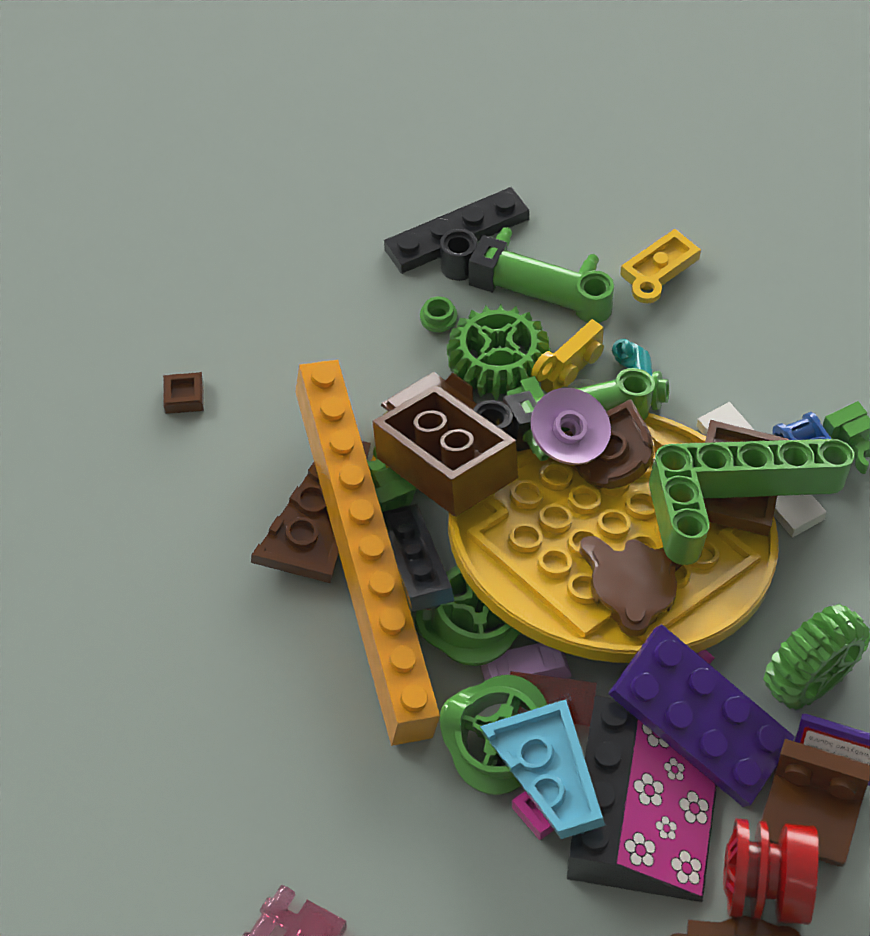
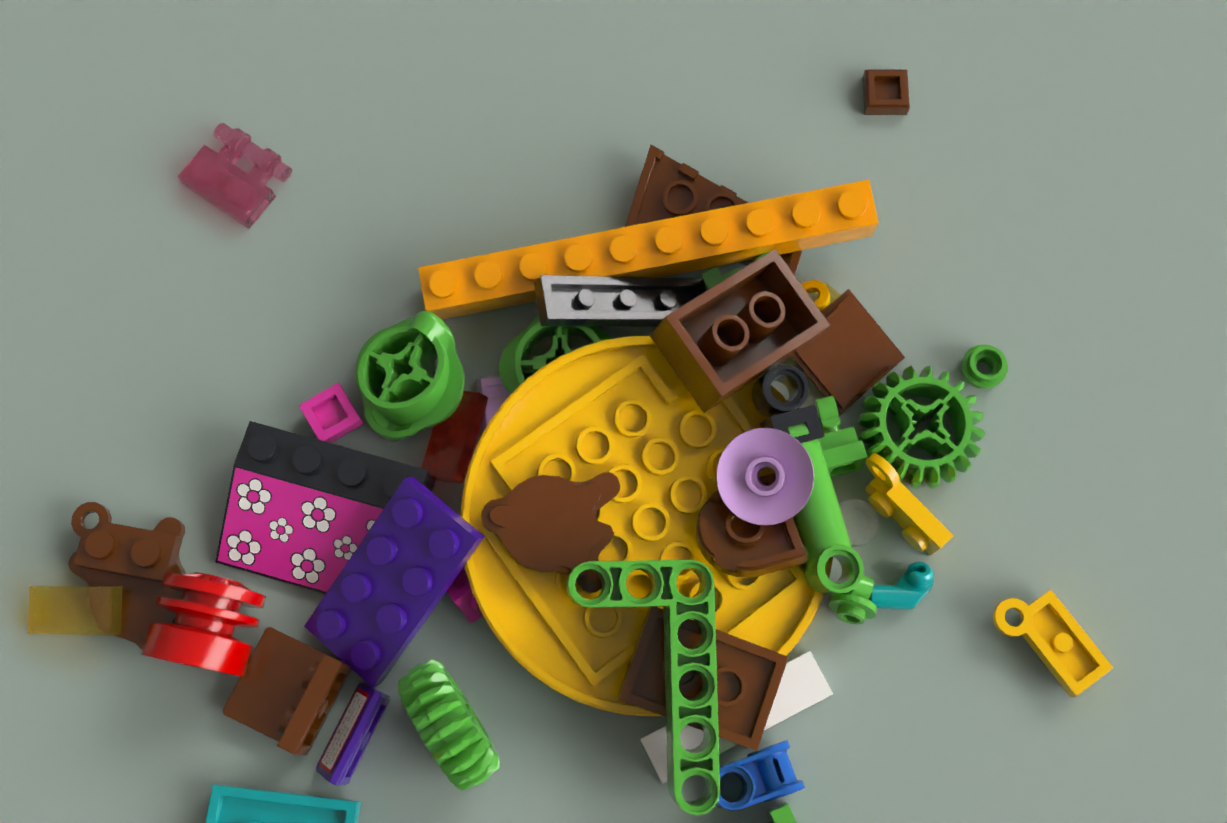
camera: 95 degrees right, 20 degrees up
(481, 218) = (1124, 401): black plate -> none
(492, 265) = (1054, 436): bright green piece -> none
(549, 765) = (342, 408): medium azure wing -> none

